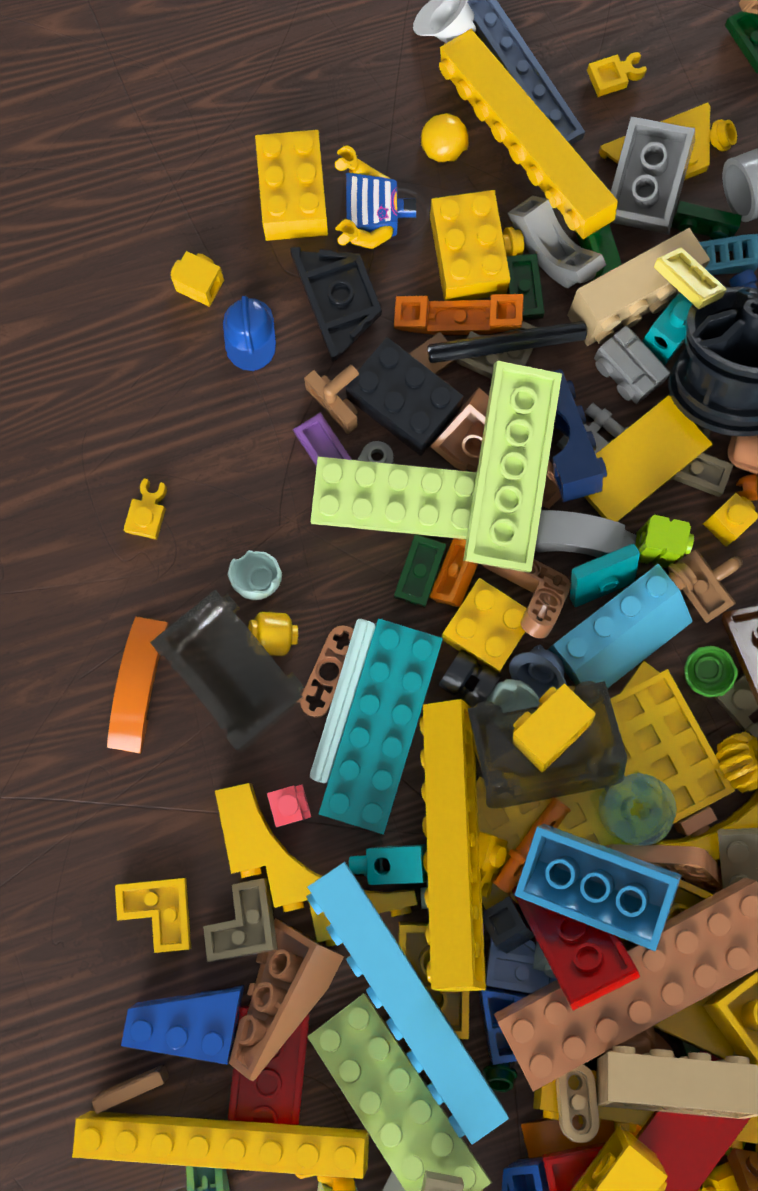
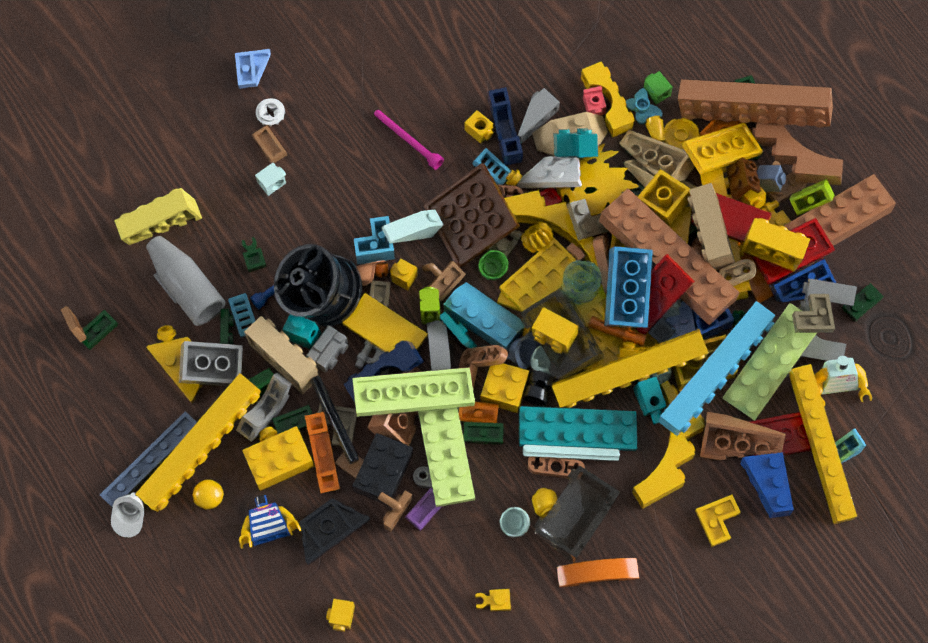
camera: 105 degrees left, 10 degrees down
(130, 1088) = (813, 502): medium nougat tile -> none
(249, 334) = (365, 575): blue piece -> none
(251, 931) = (712, 465): dark tan plate -> none
(289, 805) = (638, 465): coral brick -> none
(291, 185) = (265, 575): yellow brick -> none
(613, 75) = (141, 406): yellow plate -> none
(682, 576) = (446, 290): medium nougat plate -> none
(690, 278) = (279, 321): light yellow plate -> none

